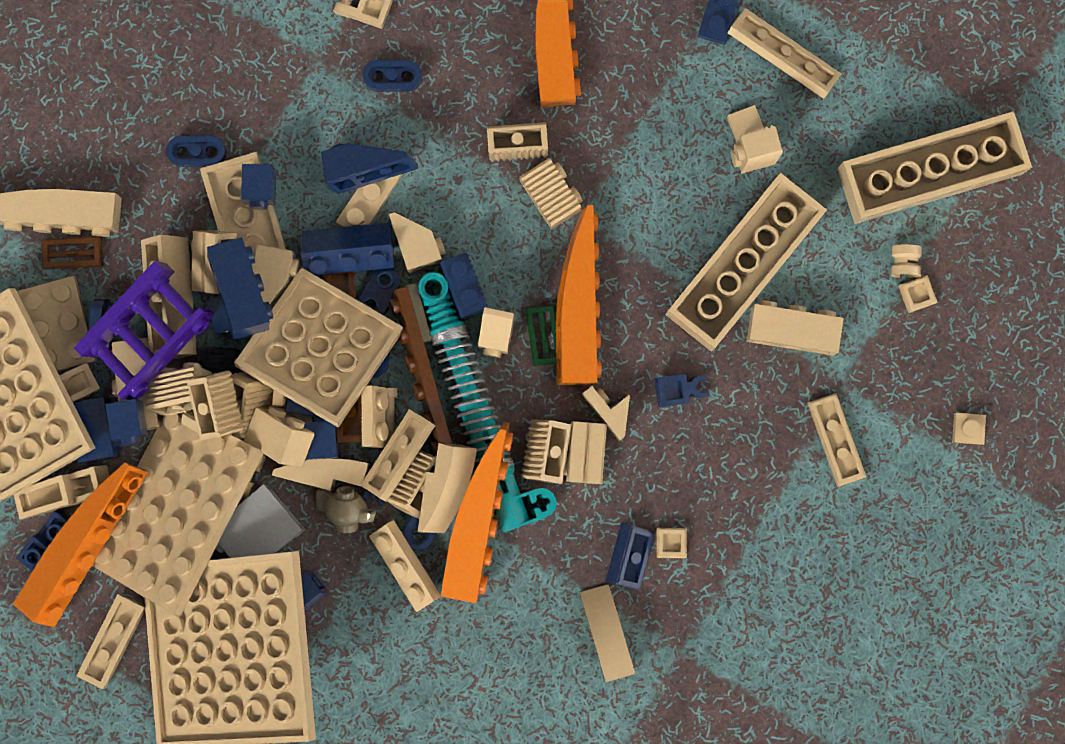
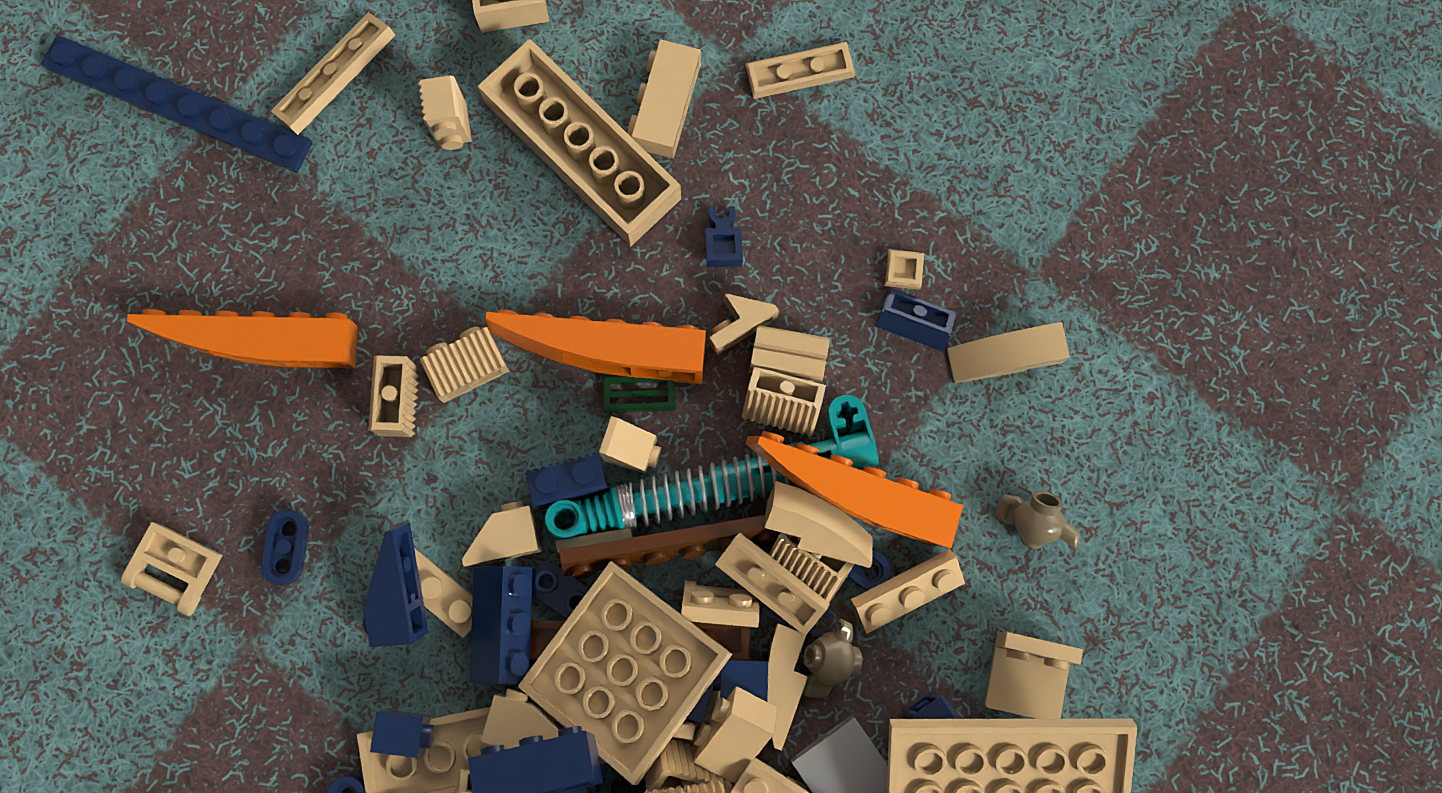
camera: 90 degrees left, 5 degrees down
(347, 668) = (1029, 676): none -> tan bracket
(472, 666) = (1037, 519): none -> dark tan piece
(745, 121) = (411, 129): tan tile -> none

